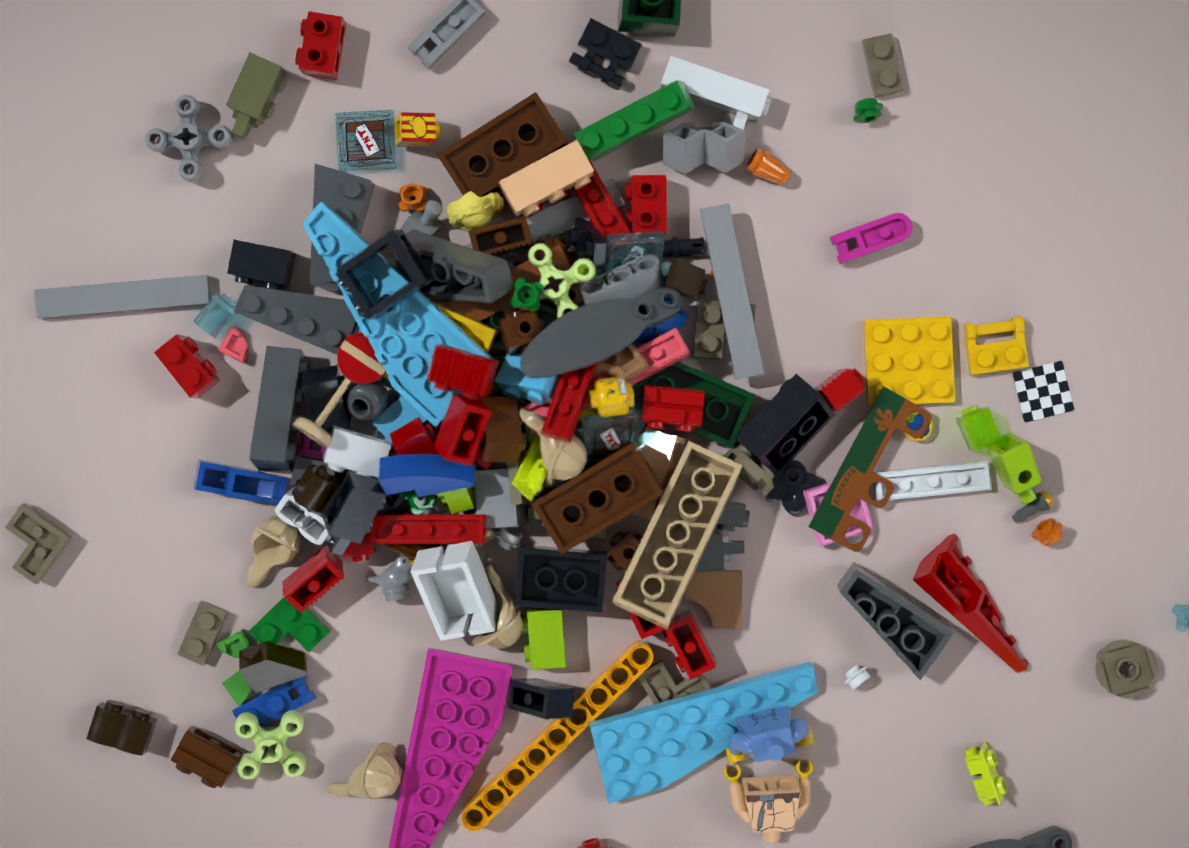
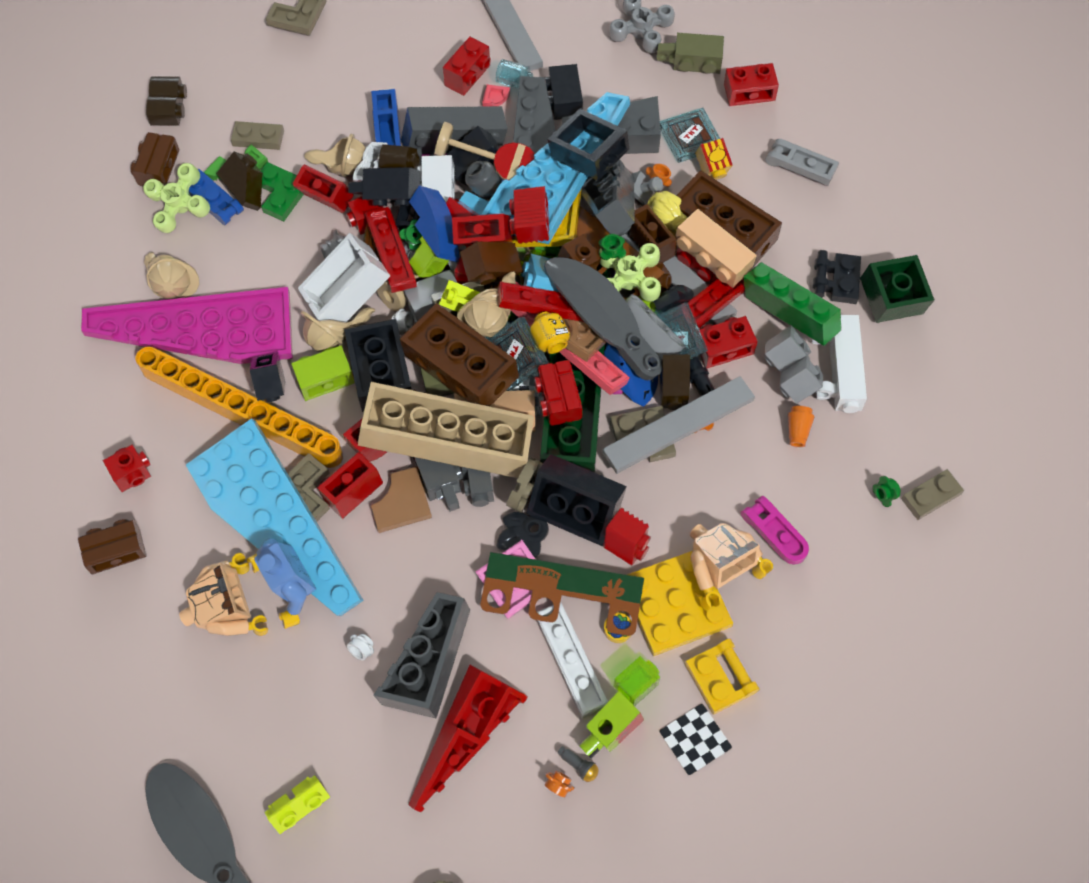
camera: 75 degrees right, 25 degrees down
(891, 304) = (723, 556): none -> light nougat torso

